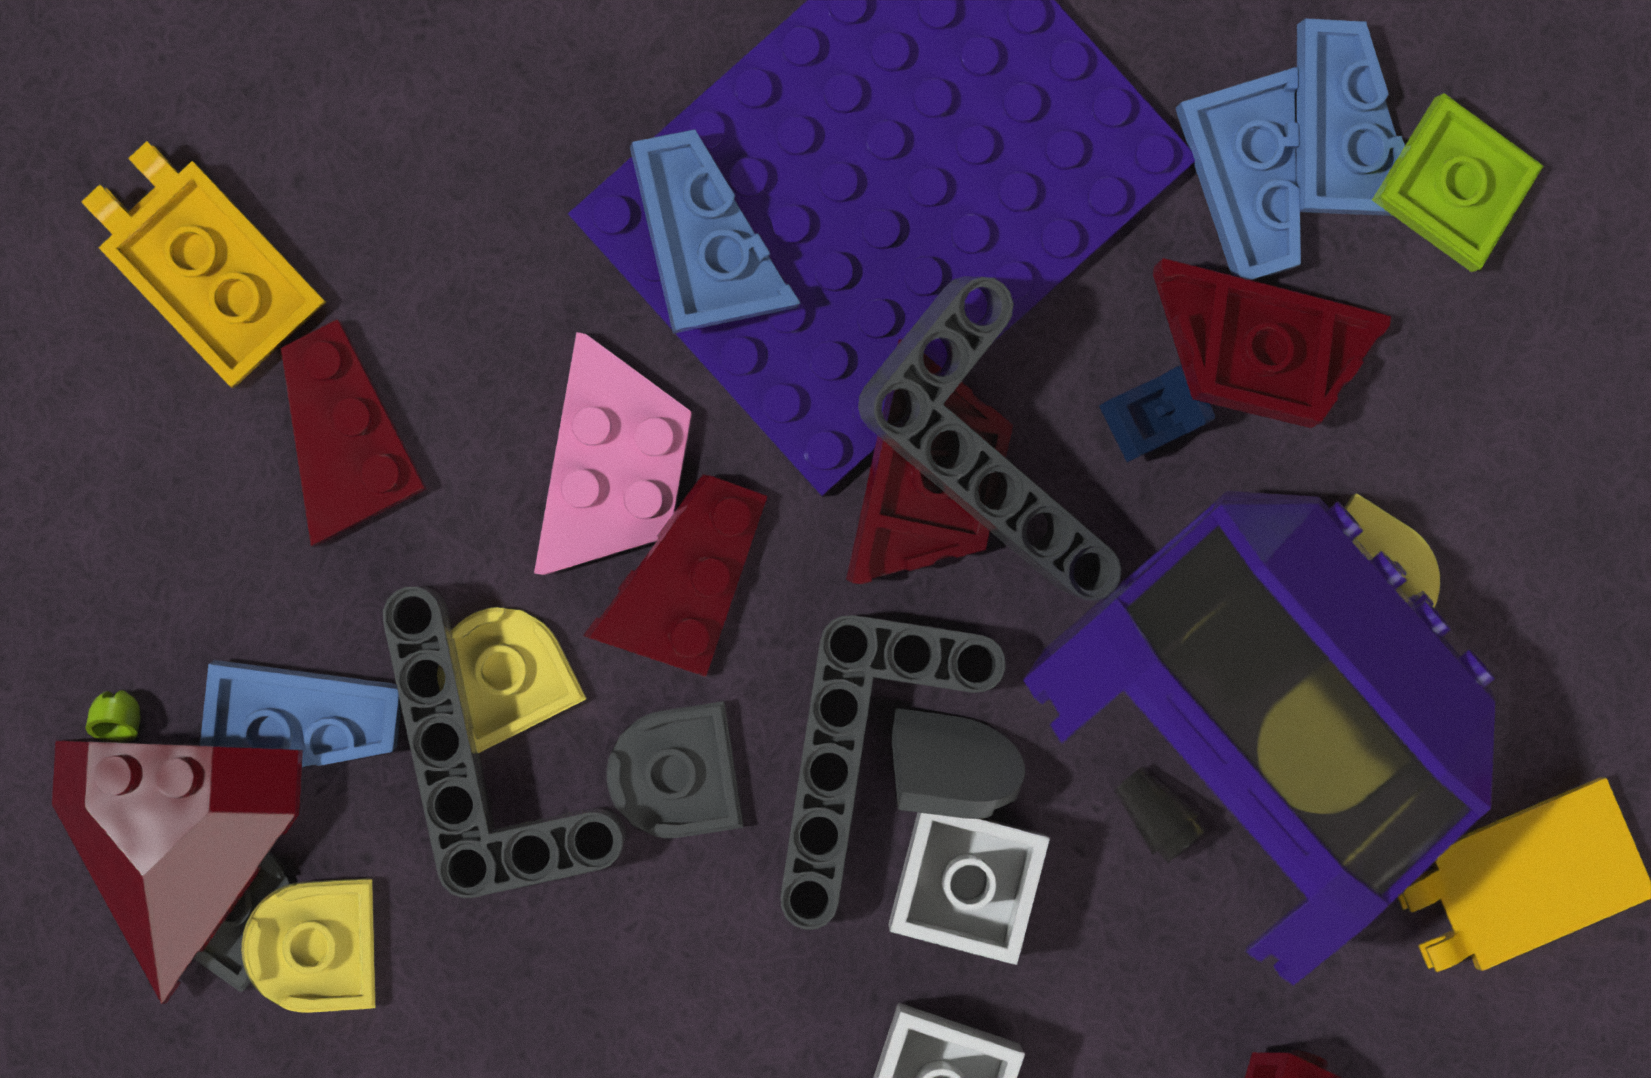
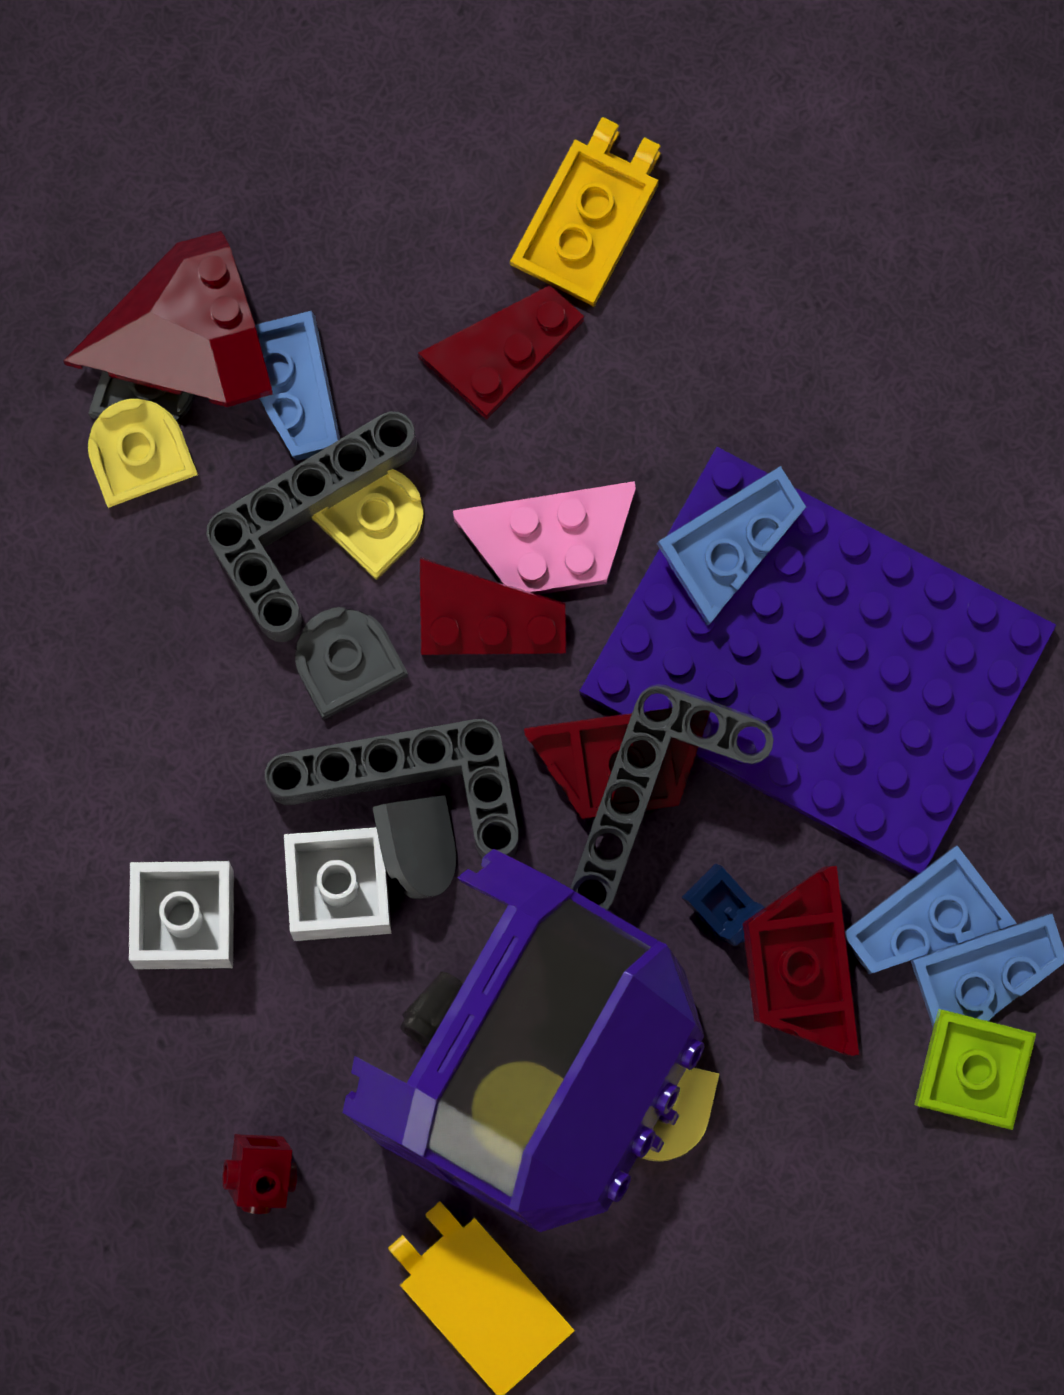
camera: 75 degrees right, 10 degrees down
(114, 717) = (252, 262): lime hinge -> none

